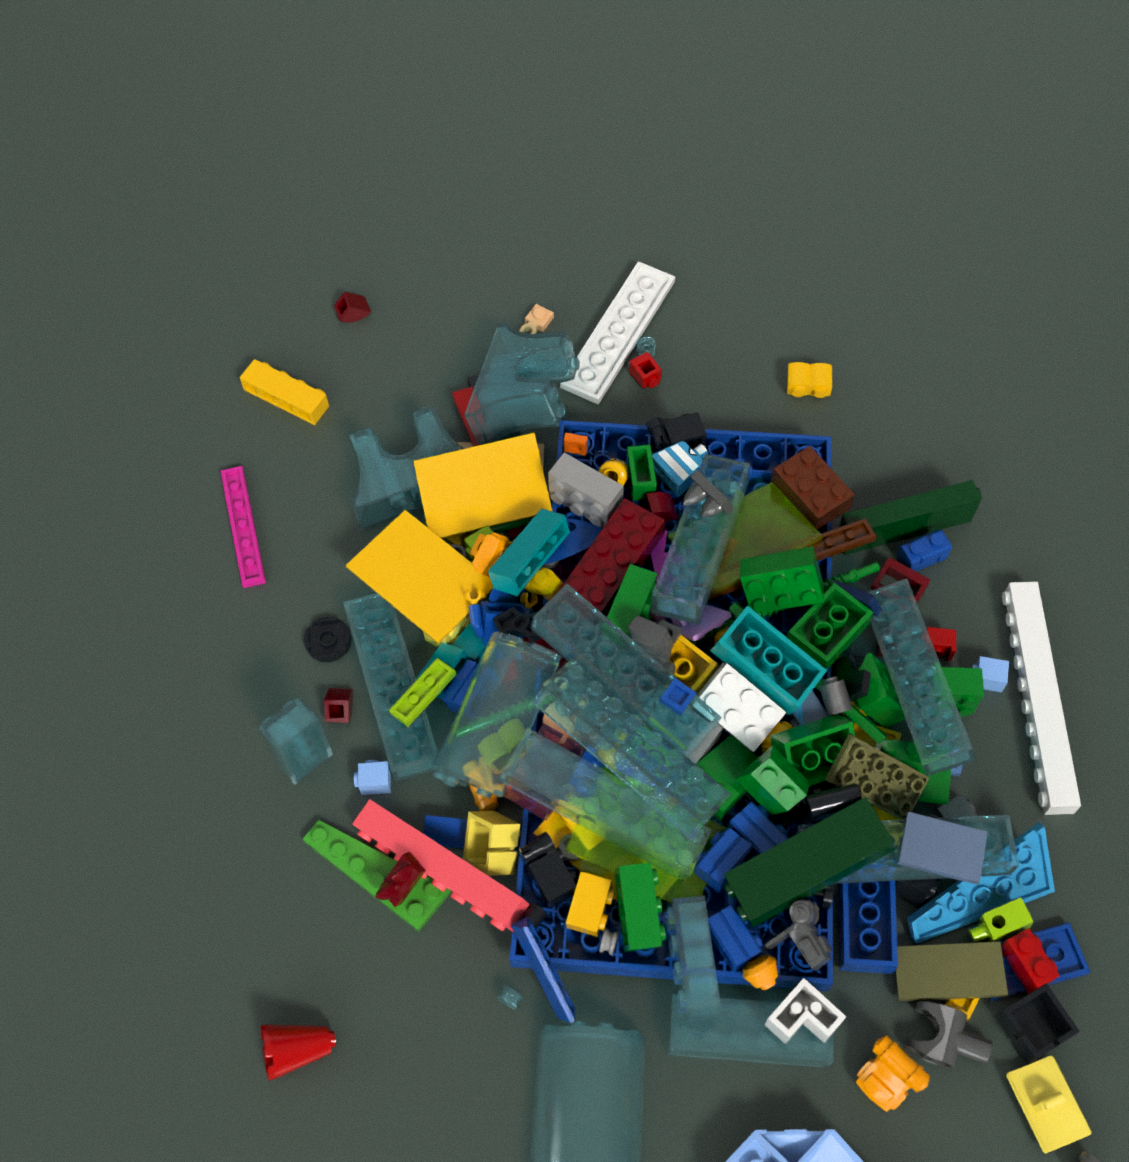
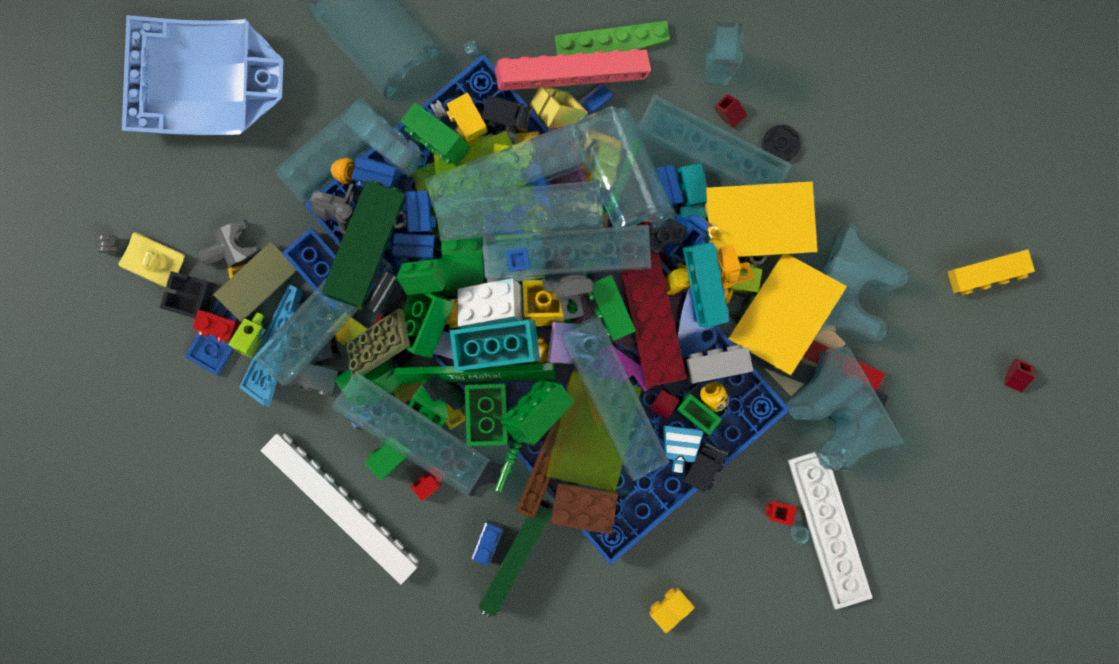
camera: 135 degrees right, 25 degrees up
(243, 527) = (911, 162): dark pink tile -> none
(373, 777) = (666, 87): light blue brick -> none
(401, 880) = (585, 40): dark red tile -> none
(422, 692) = (685, 154): lime tile -> none
(536, 914) = (490, 83): black hinge -> none
(537, 320) = (891, 487): light nougat plate -> none
(544, 969) = (458, 66): blue slope -> none
(575, 444) = (760, 397): orange tile -> none
(704, 488) = (640, 426): dark grey tile -> none
(808, 1008) = (307, 175): white brick -> none
(835, 696) = (439, 366): flat silver brick -> none
(863, 597) = (490, 450): dark blue tile -> none
(890, 1075) = (239, 193): light orange piece -> none
(900, 572) = (485, 515): dark red tile -> none
(942, 848) = (301, 326): sand blue tile -> none
(994, 673) = (380, 493): light blue brick -> none

